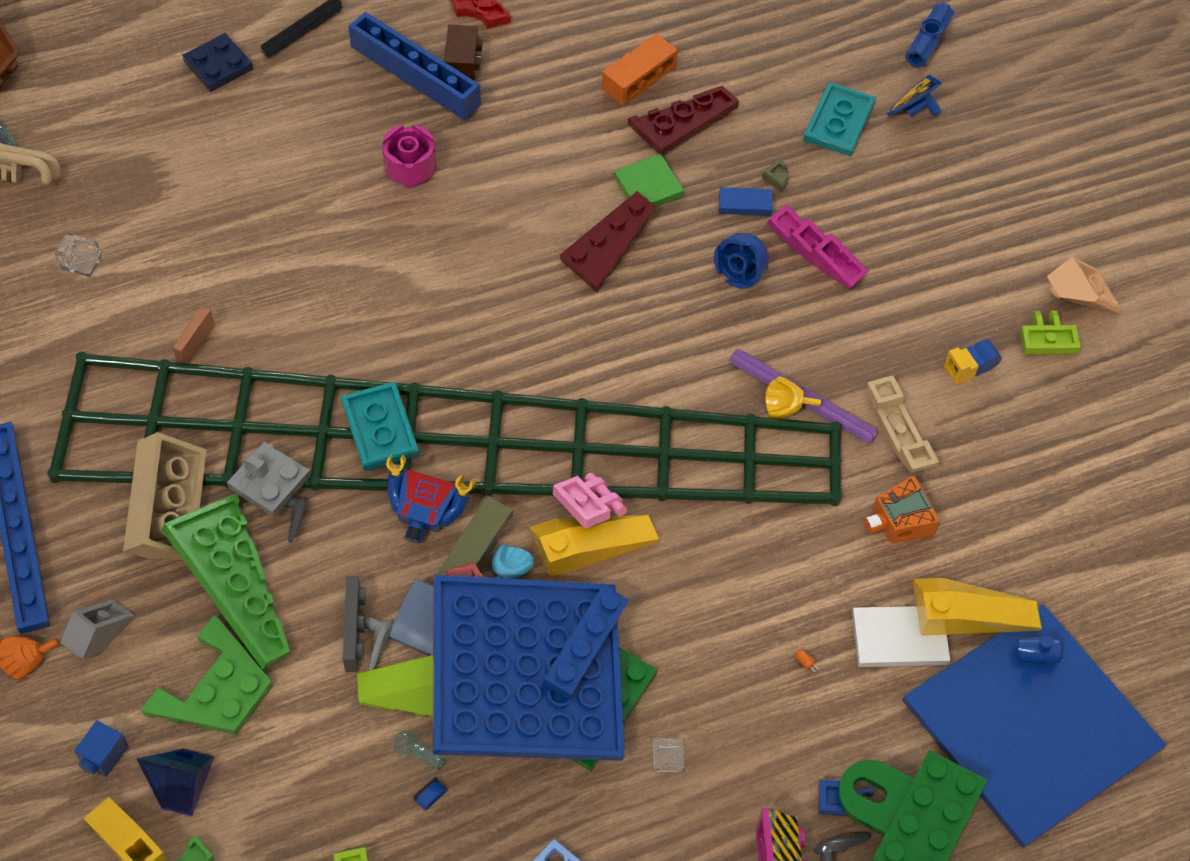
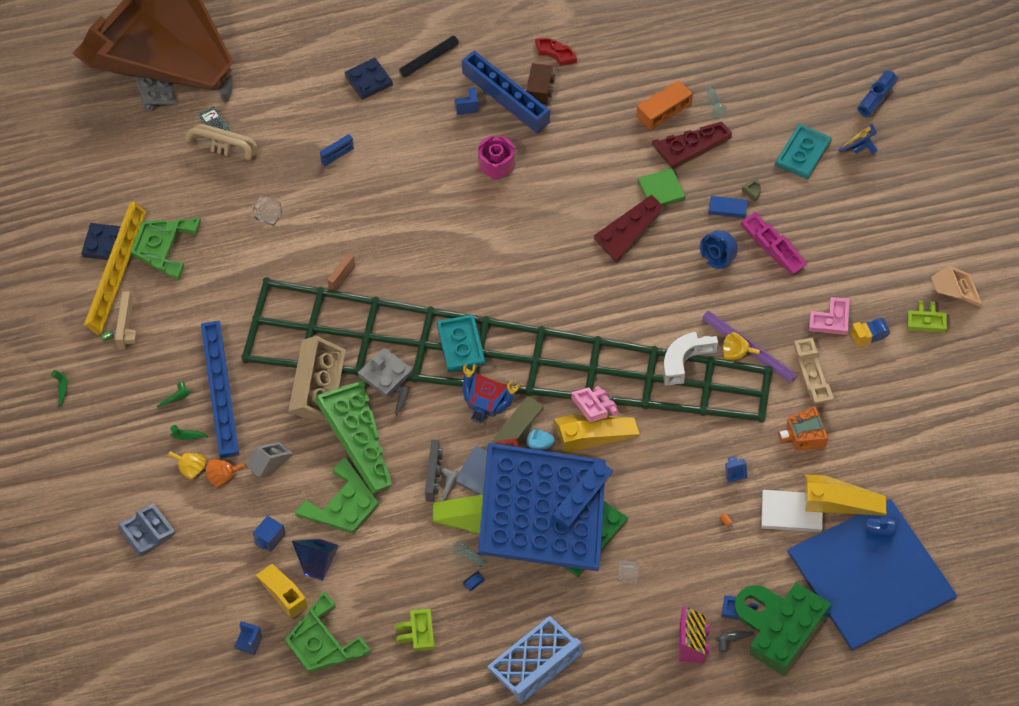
camera: 10 degrees right, 0 degrees up
(12, 92) = (226, 90): none -> dark grey bar
(176, 162) = (336, 150): none -> blue tile
(362, 88) = (468, 104): none -> blue panel
(706, 409) = (680, 351): none -> white arch
(715, 71) = (719, 110): none -> clear light blue bar
(809, 580) = (735, 469): none -> blue tile
(918, 350) = (833, 322): none -> bright pink plate

